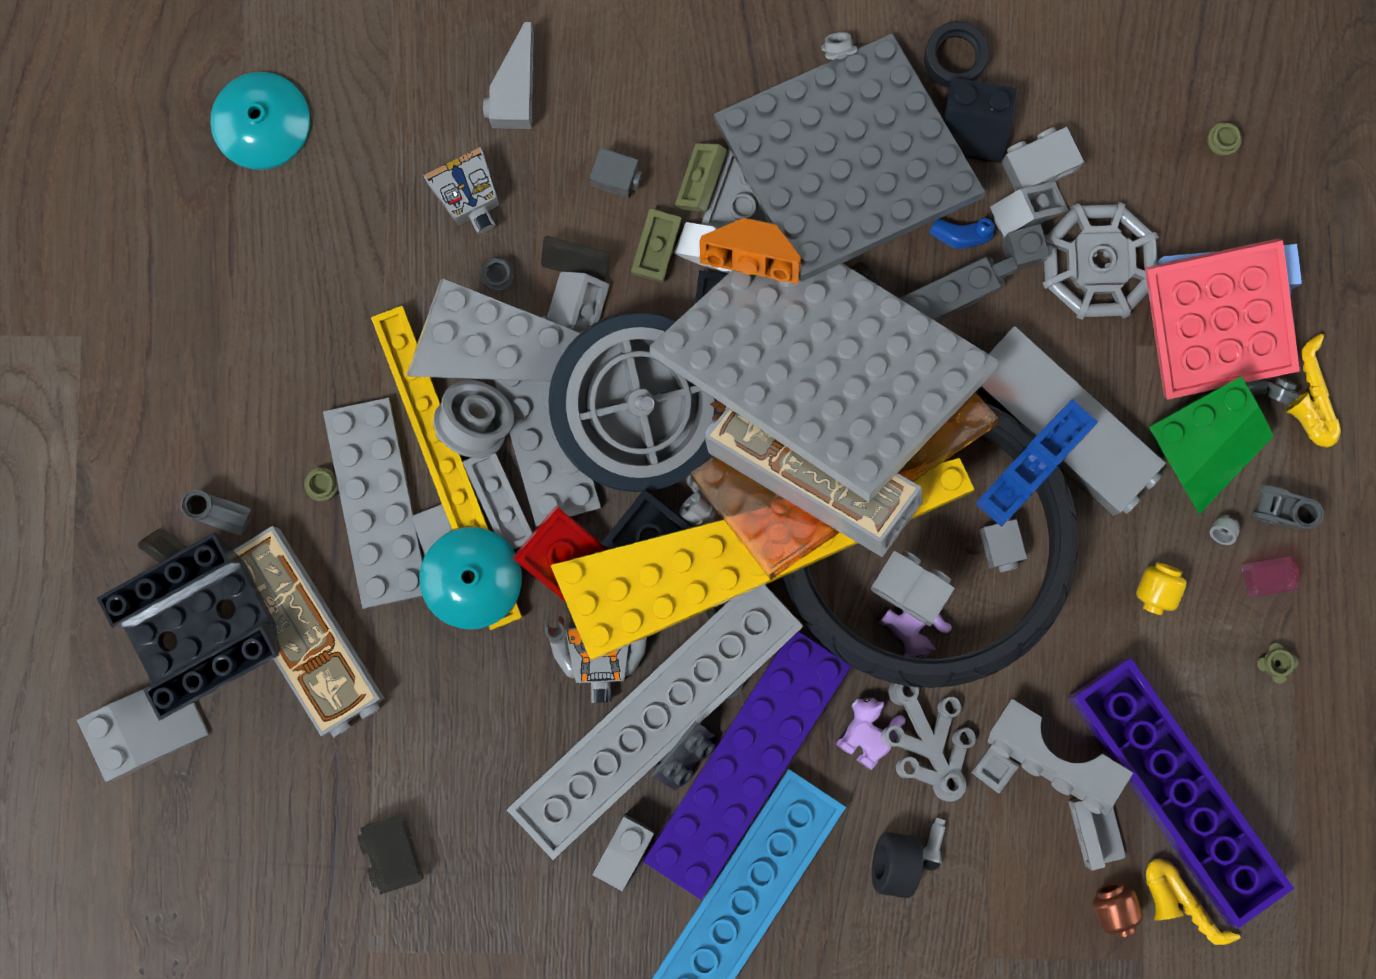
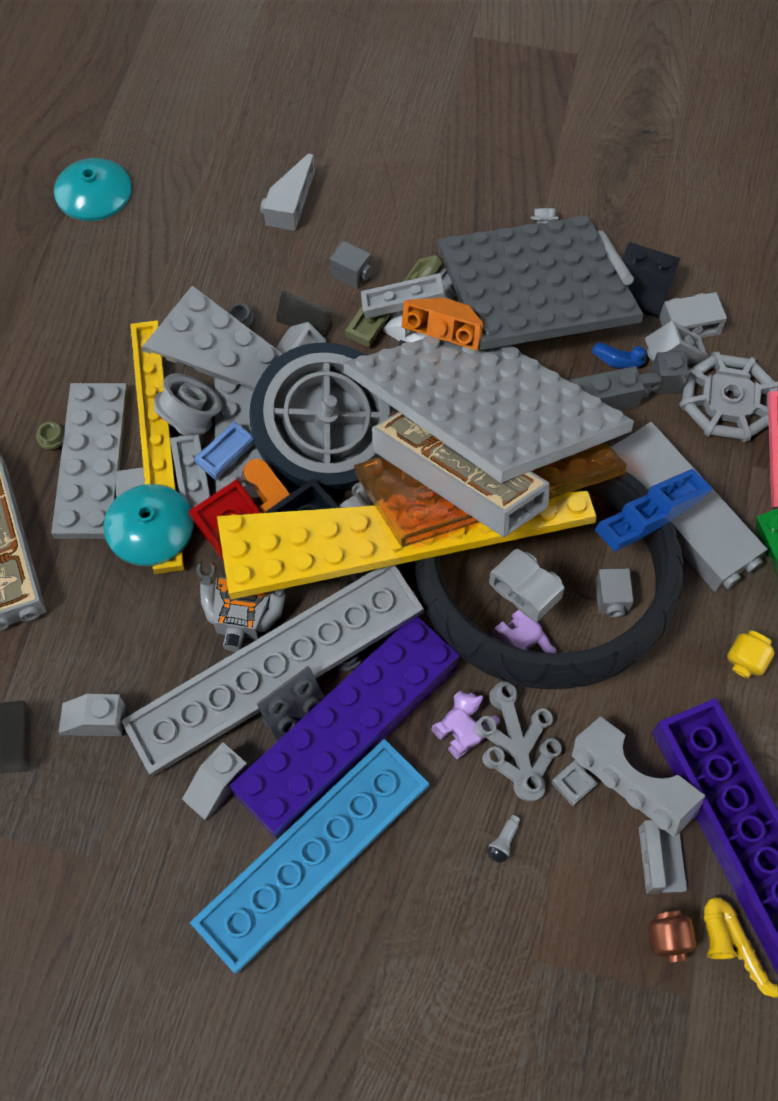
camera: 10 degrees right, 20 degrees down
(466, 190) = (231, 254): torso -> none
(473, 810) = (93, 715): none -> light grey slope
(531, 466) = (224, 450): none -> medium blue tile
(582, 498) = (265, 483): none -> orange leg
(692, 217) = (392, 297): none -> light grey plate
(897, 865) = (466, 844): black tyre -> none
(937, 104) = (616, 260): none -> light grey bar
(959, 30) = (635, 221): black tyre -> none

